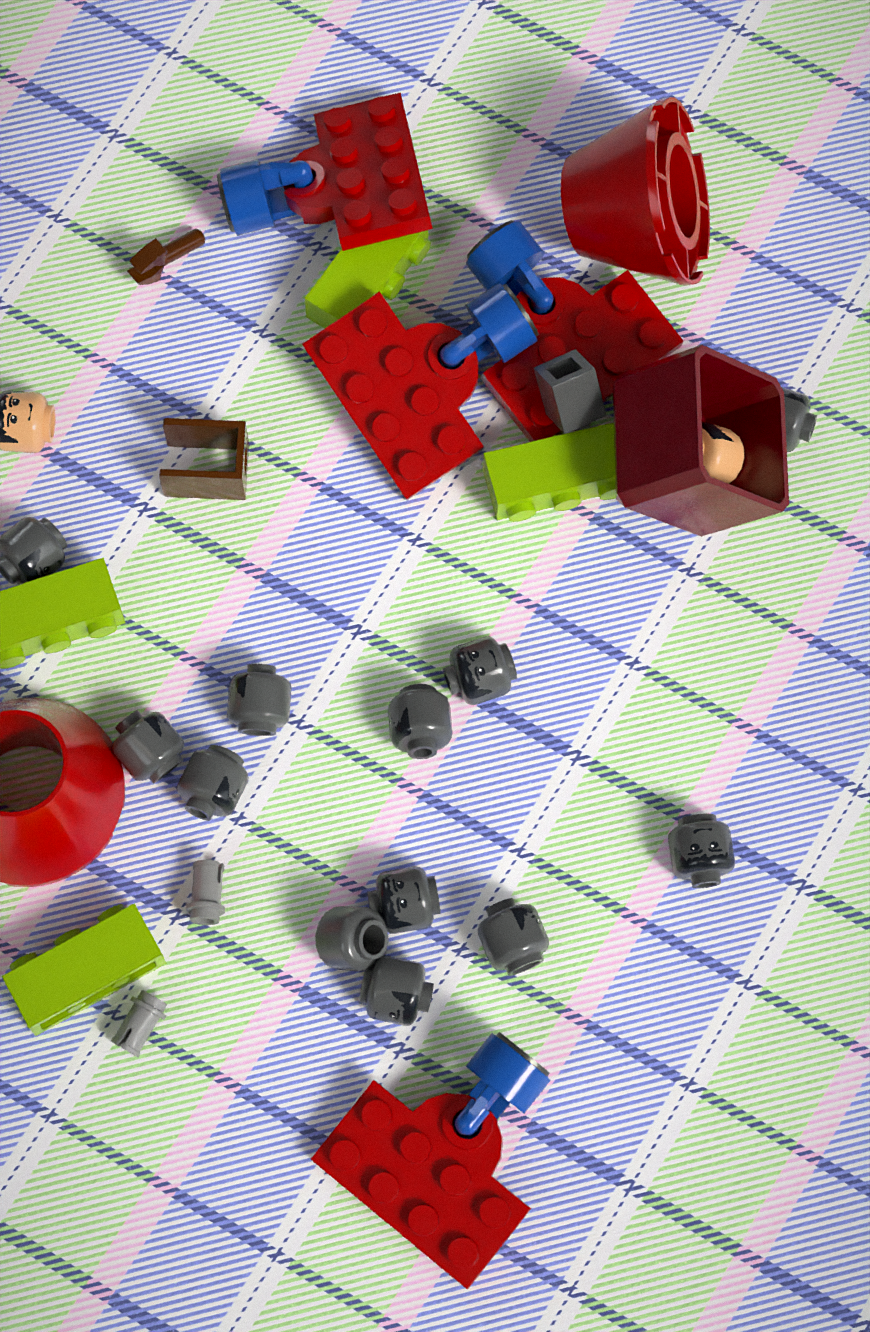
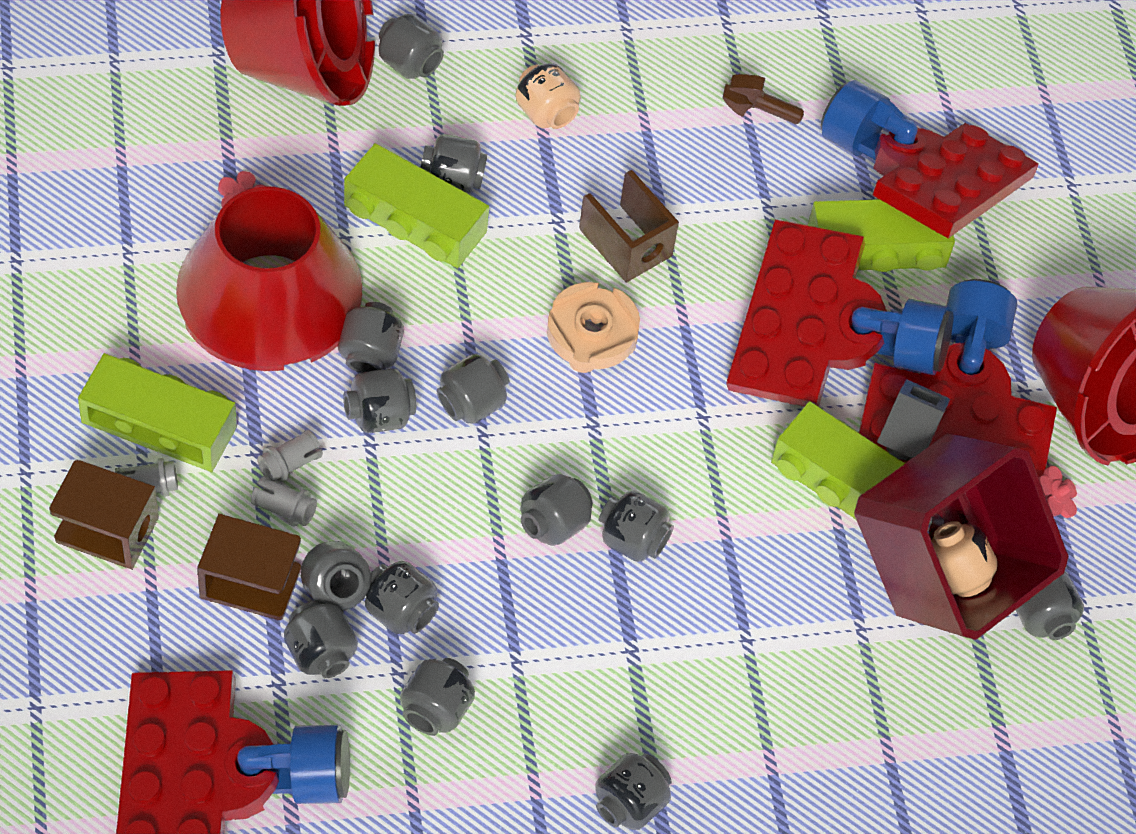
camera: 45 degrees right, 15 degrees down
(151, 1081) = (104, 513): none -> reddish brown piece
(249, 926) = (284, 501): none -> light grey pin
(286, 583) = (590, 349): none -> light nougat plate
(291, 999) = (249, 567): none -> reddish brown piece
(692, 329) = (1059, 492): none -> coral plant

